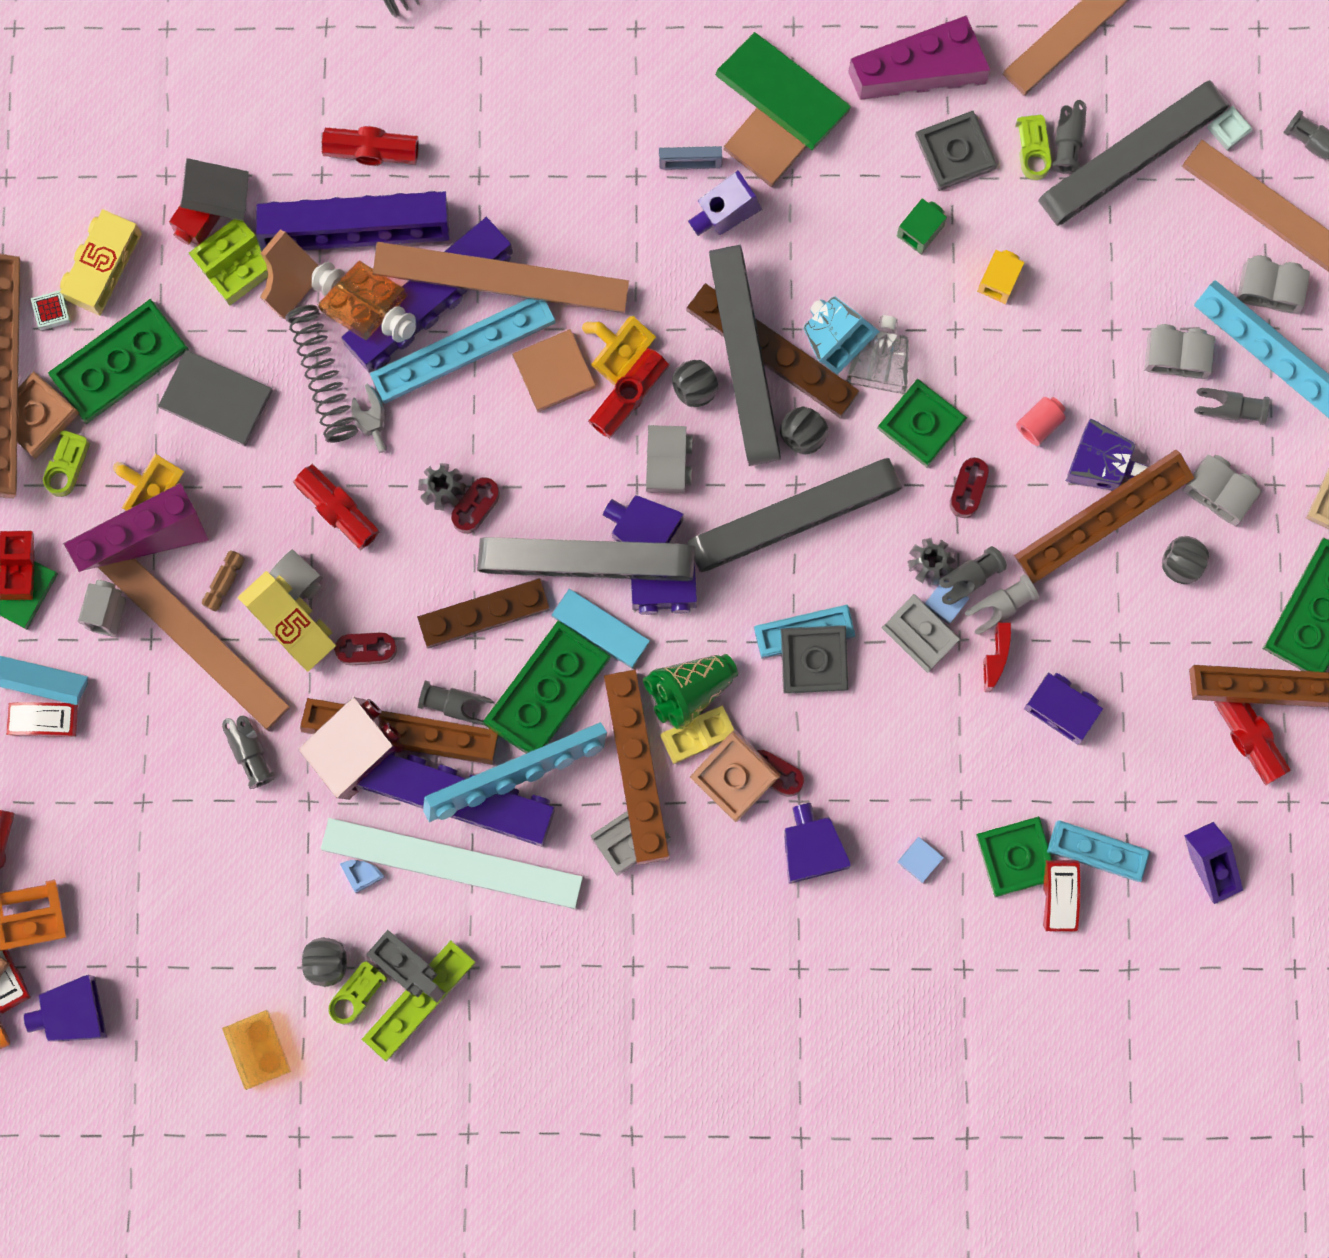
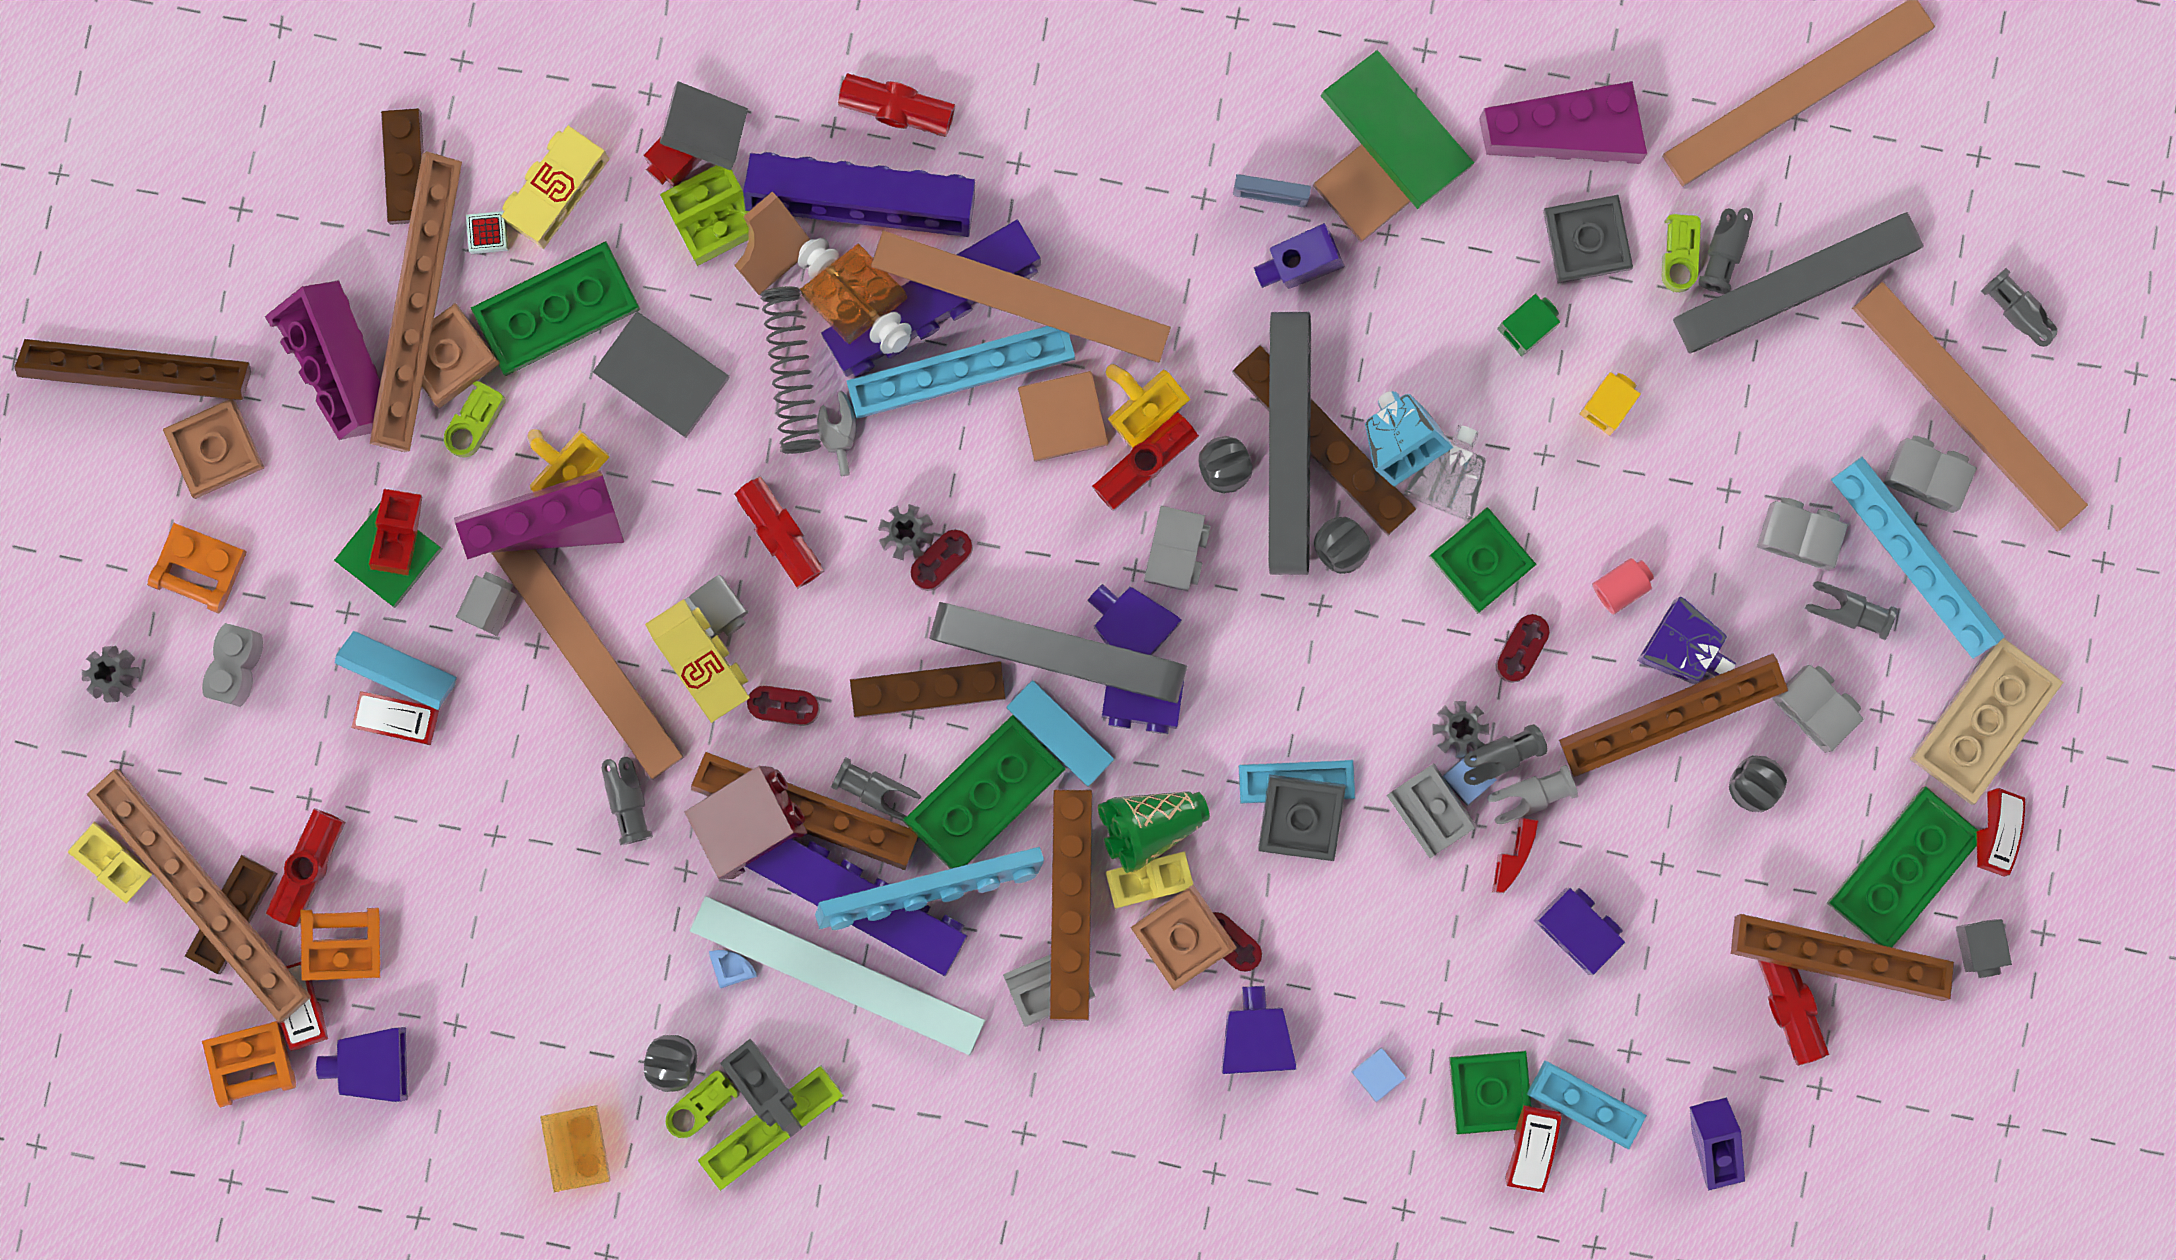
camera: 10 degrees right, 5 degrees up
(223, 580) = (632, 594): medium nougat axle -> none
(795, 514) = (1312, 643): dark grey beam -> none
(1229, 128) = (1918, 273): light aqua tile -> none

